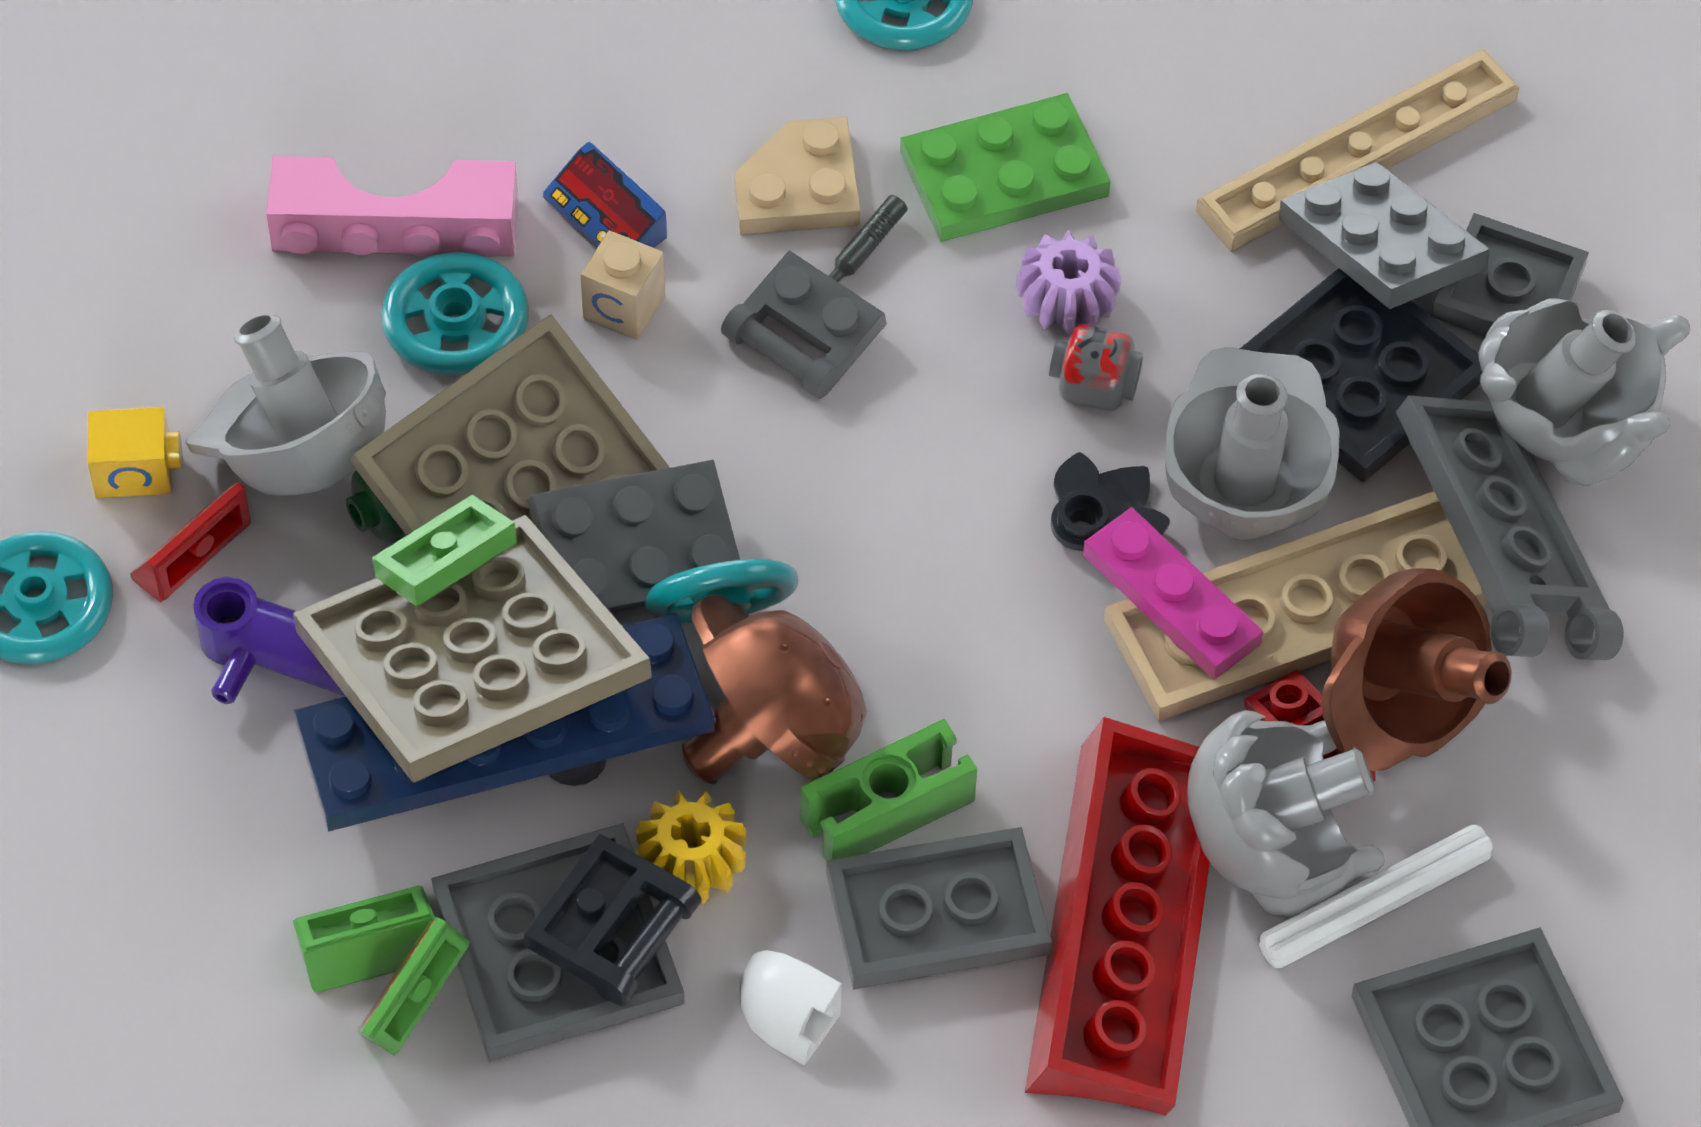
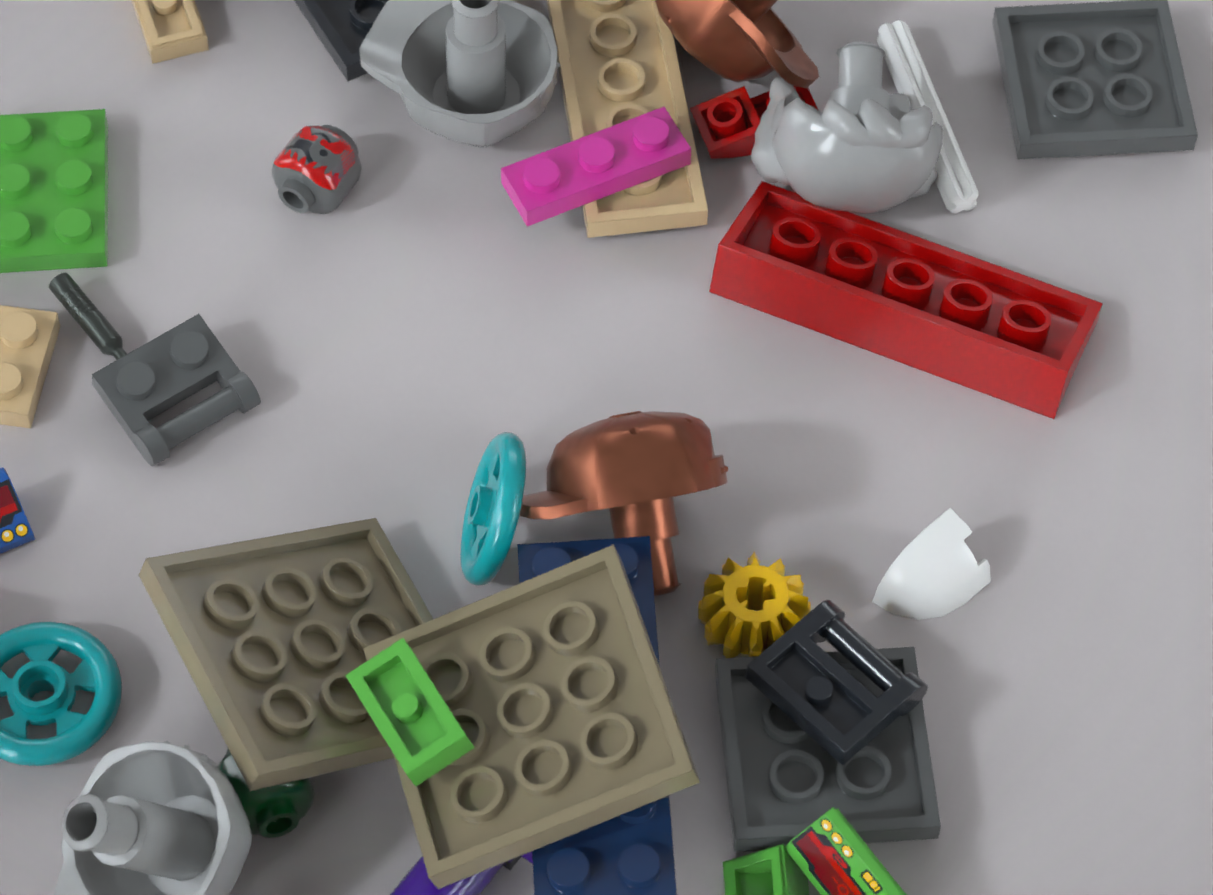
camera: 75 degrees left, 0 degrees up
(623, 285) = (75, 526): tan brick -> none
(637, 529) = (392, 562): dark grey plate -> none
(894, 769) = (742, 416): bright green piece -> none
(938, 908) = (865, 431): dark grey plate -> none
(1068, 282) = (212, 166): lavender gear -> none
(1098, 499) = (459, 205): black plate -> none

